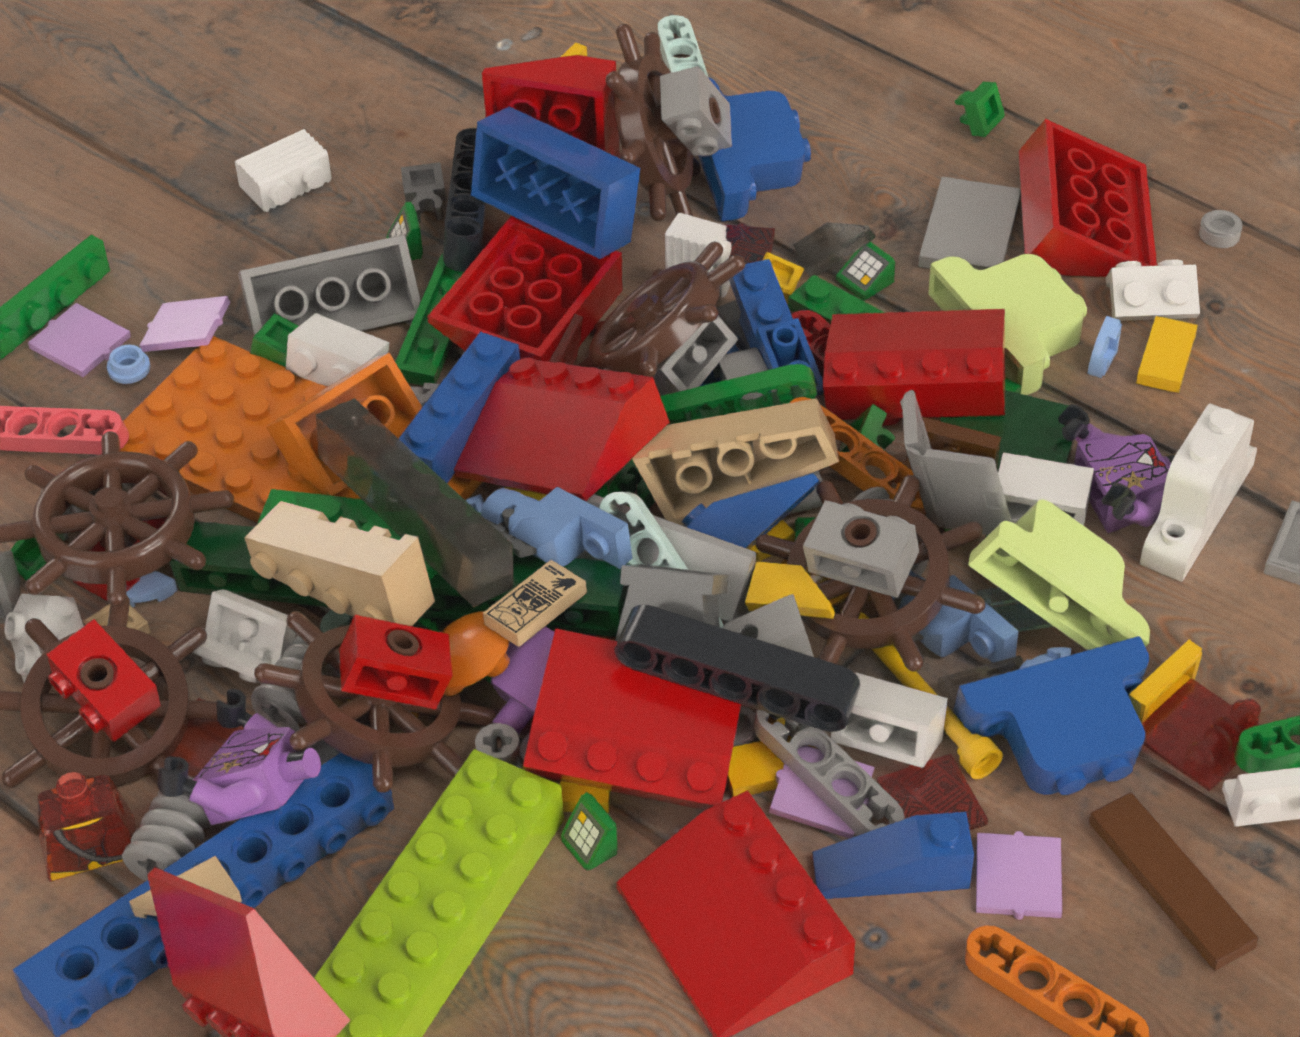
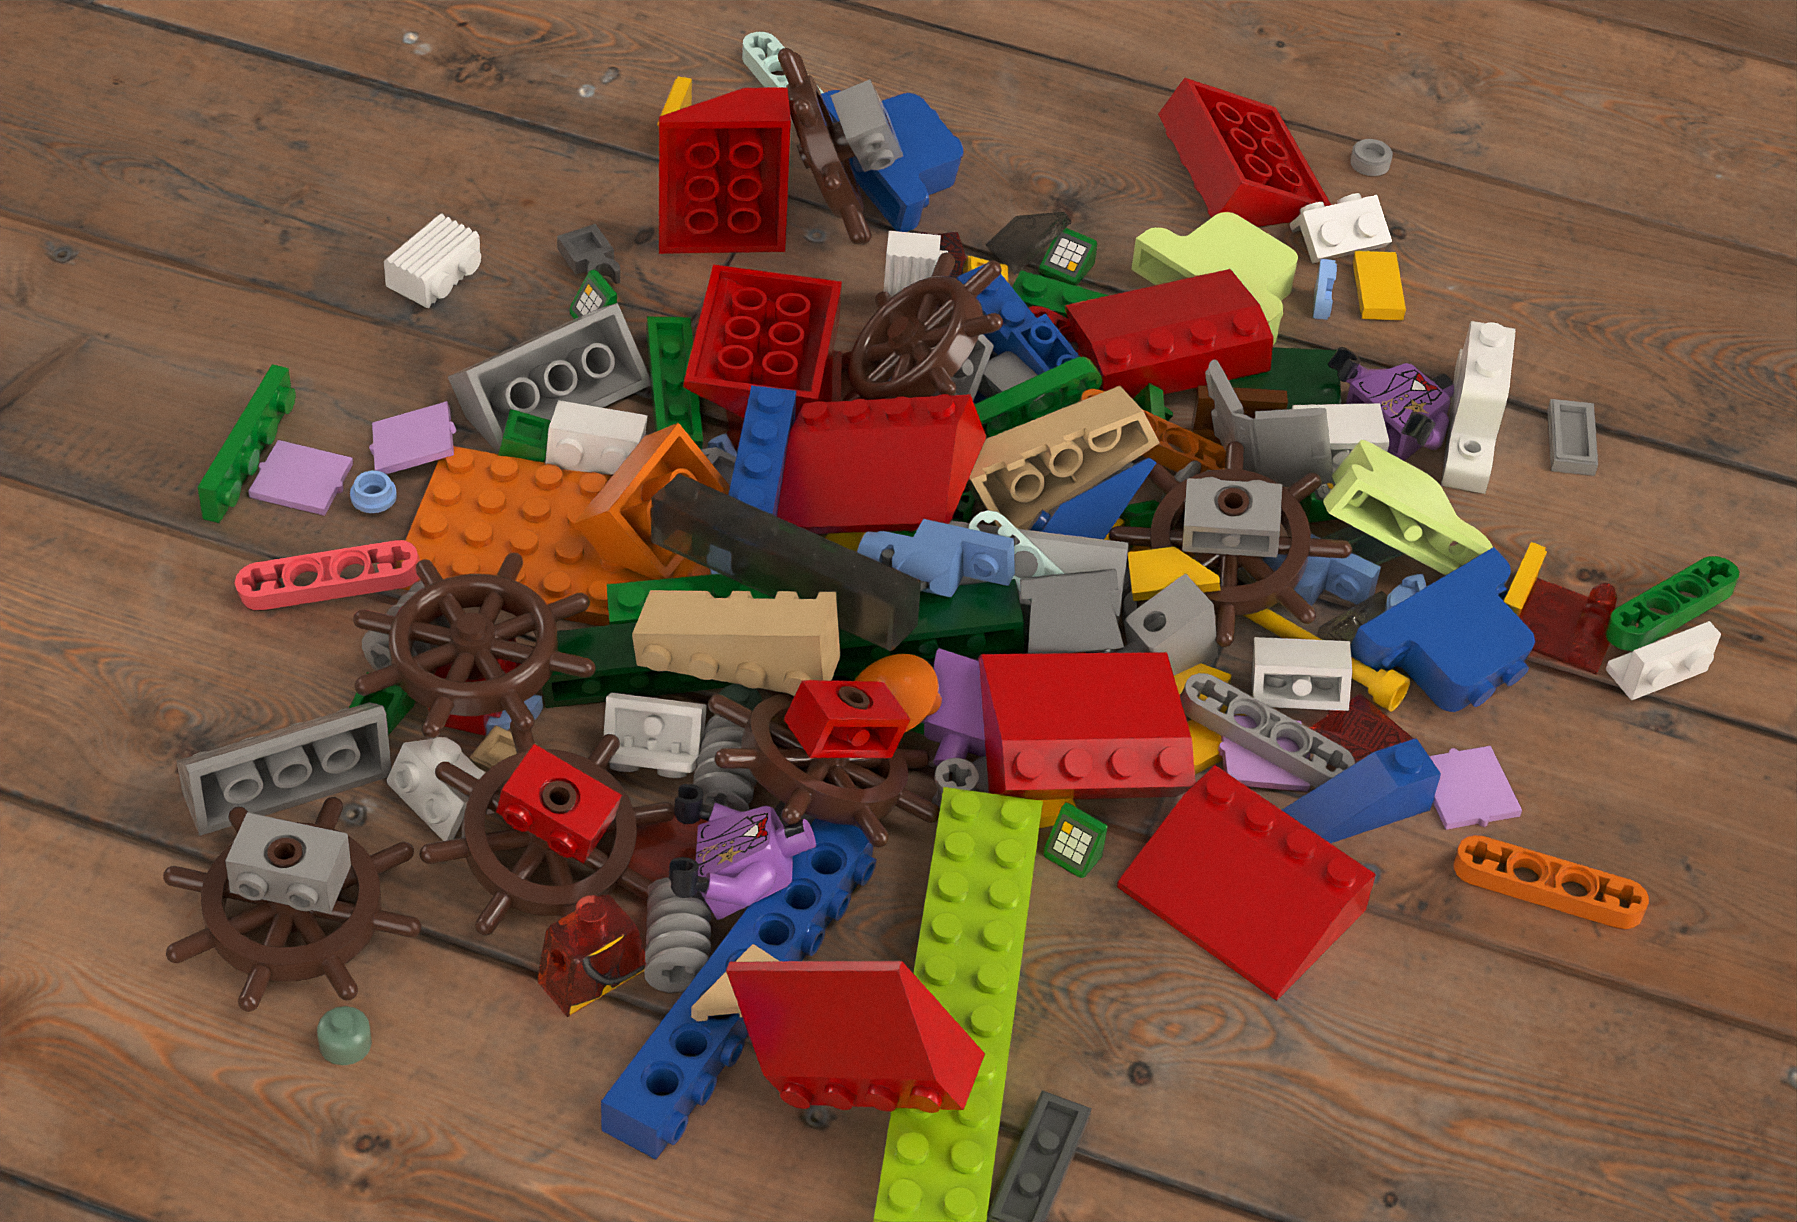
camera: 25 degrees left, 0 degrees up
(464, 212) = (649, 256): black beam -> none
(534, 603) = (947, 635): tan tile -> none
(555, 182) = (756, 221): blue brick -> none
(738, 668) = (1166, 652): black beam -> none
(970, 223) = (1141, 193): light grey tile -> none
(982, 108) = (1103, 78): green tile -> none
(1173, 881) = (1601, 759): reddish brown tile -> none

